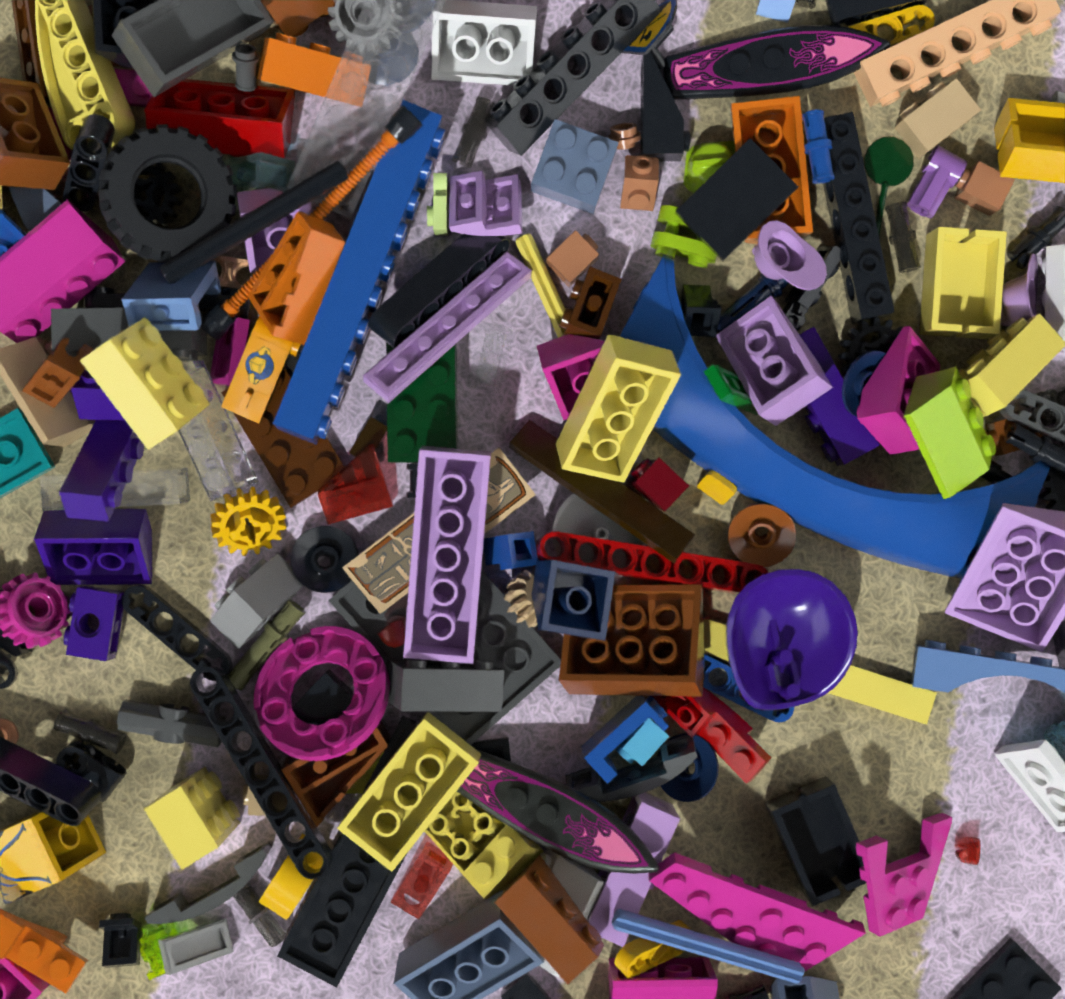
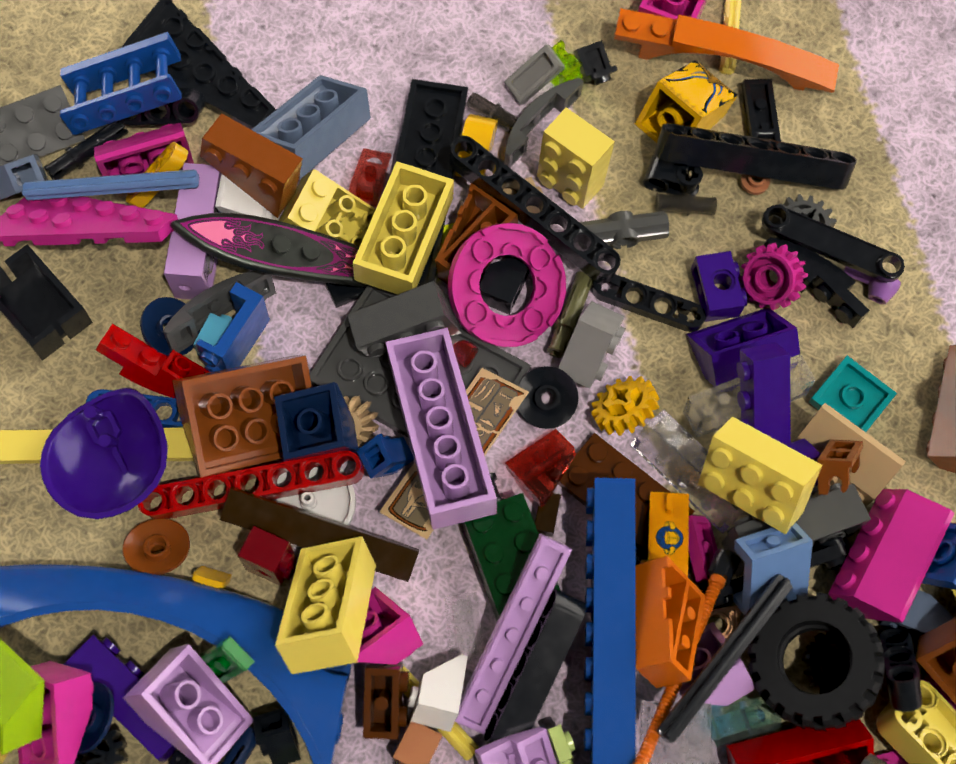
camera: 150 degrees right, 20 degrees down
(536, 294) = (439, 695): none -> white slope

